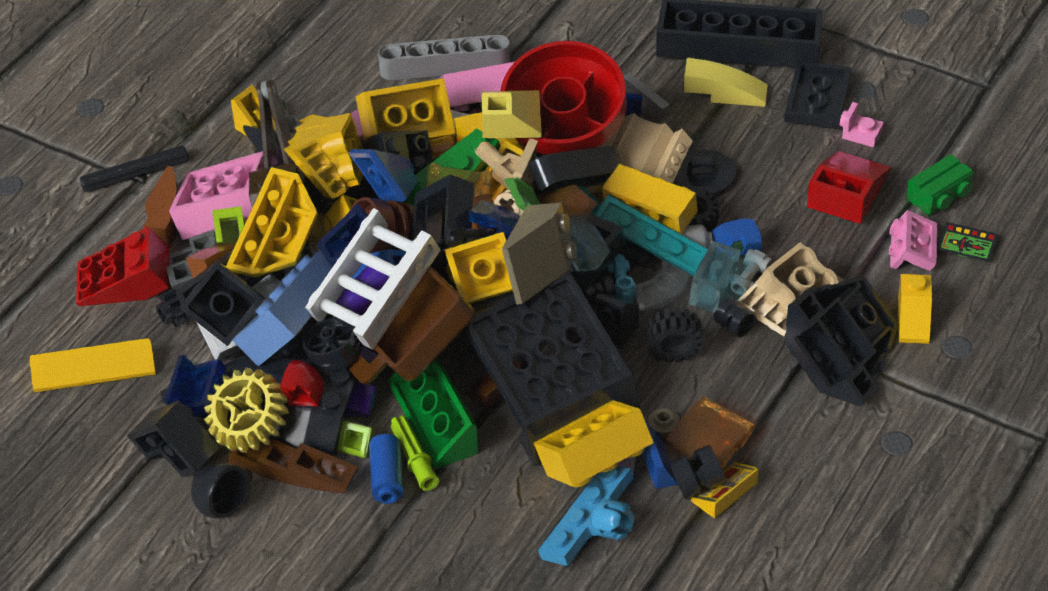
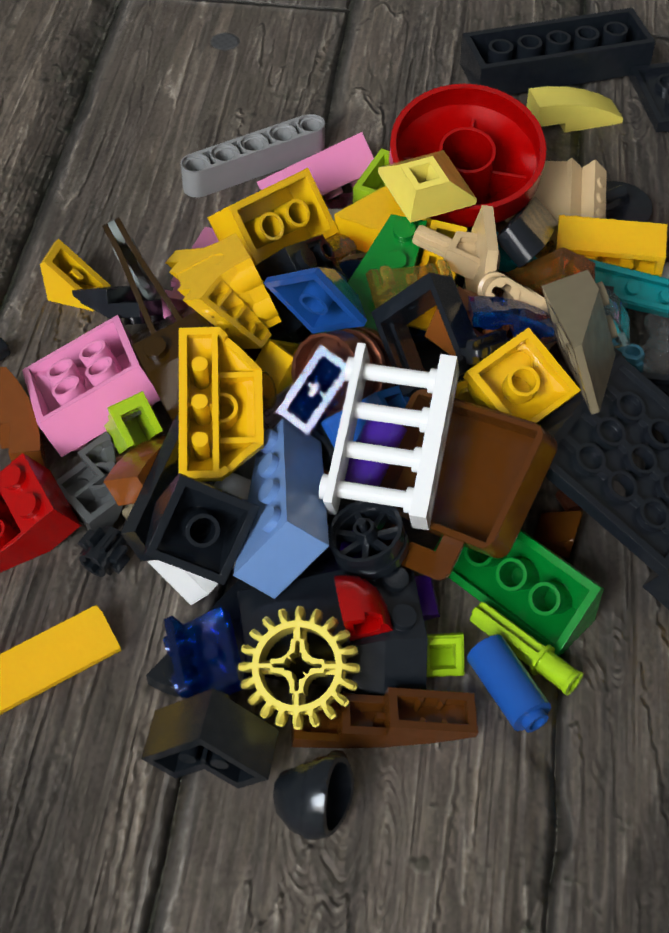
camera: 25 degrees left, 5 degrees up
(522, 193) = (508, 270): bright green piece -> none

